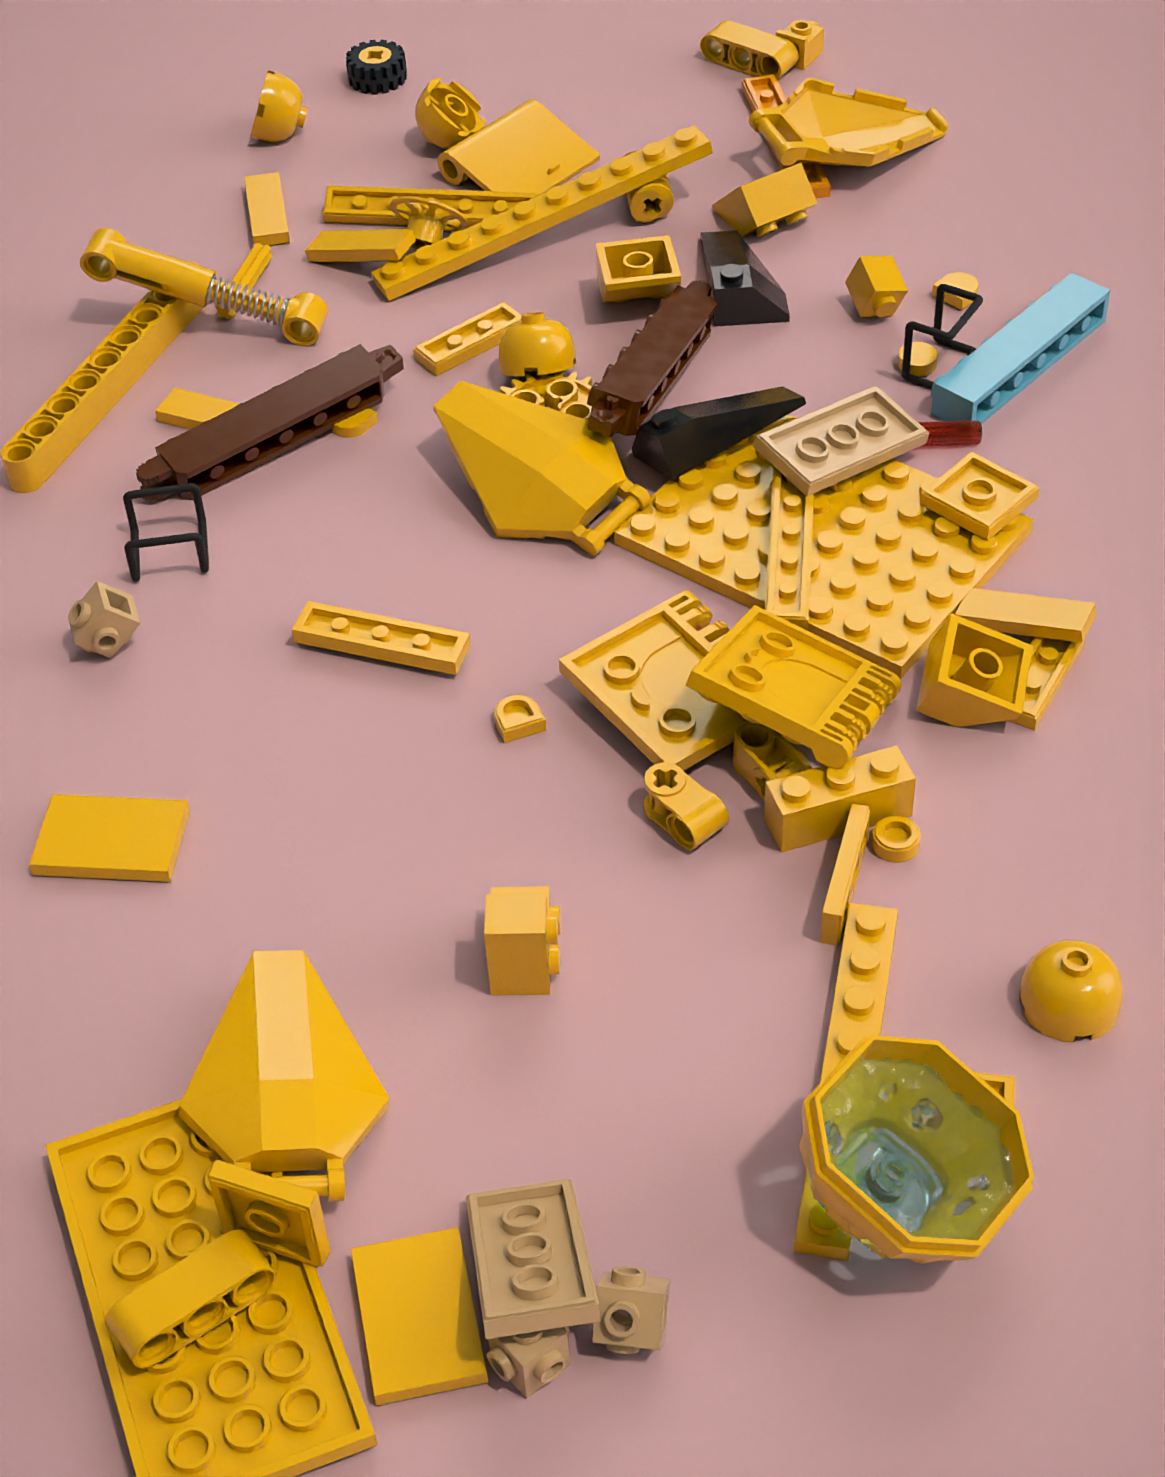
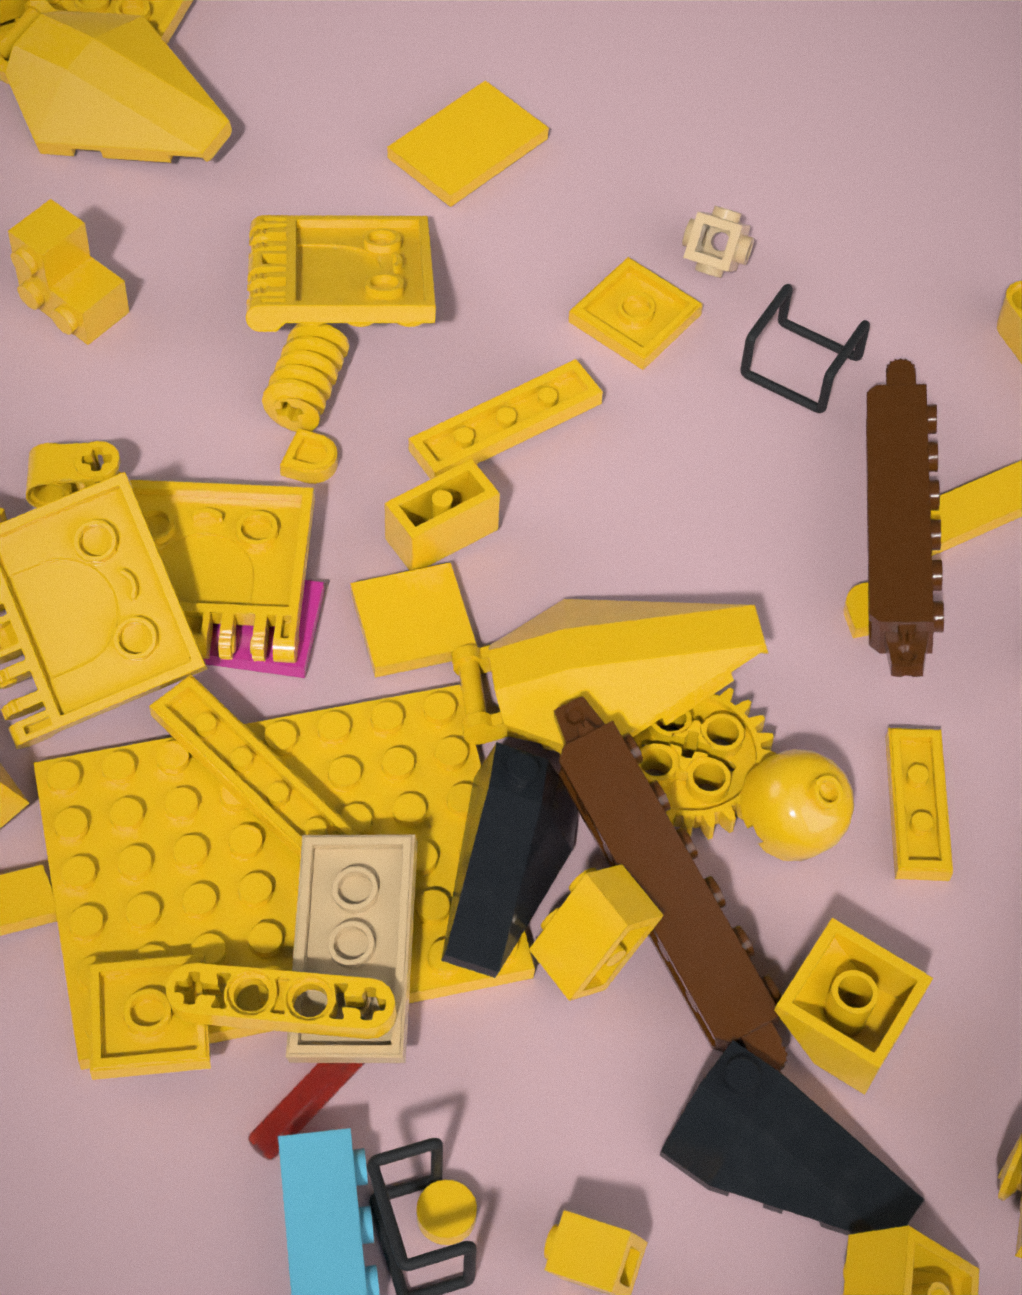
camera: 125 degrees right, 10 degrees up
(203, 647) = (635, 313): none -> yellow tile
(342, 771) = (339, 271): none -> yellow hinge
(457, 746) = (305, 376): none -> yellow piece
(505, 597) = (442, 515): none -> yellow brick
(588, 587) = (411, 618): none -> yellow tile
(714, 360) = (595, 931): none -> yellow brick
(943, 460) = (283, 991): none -> yellow beam

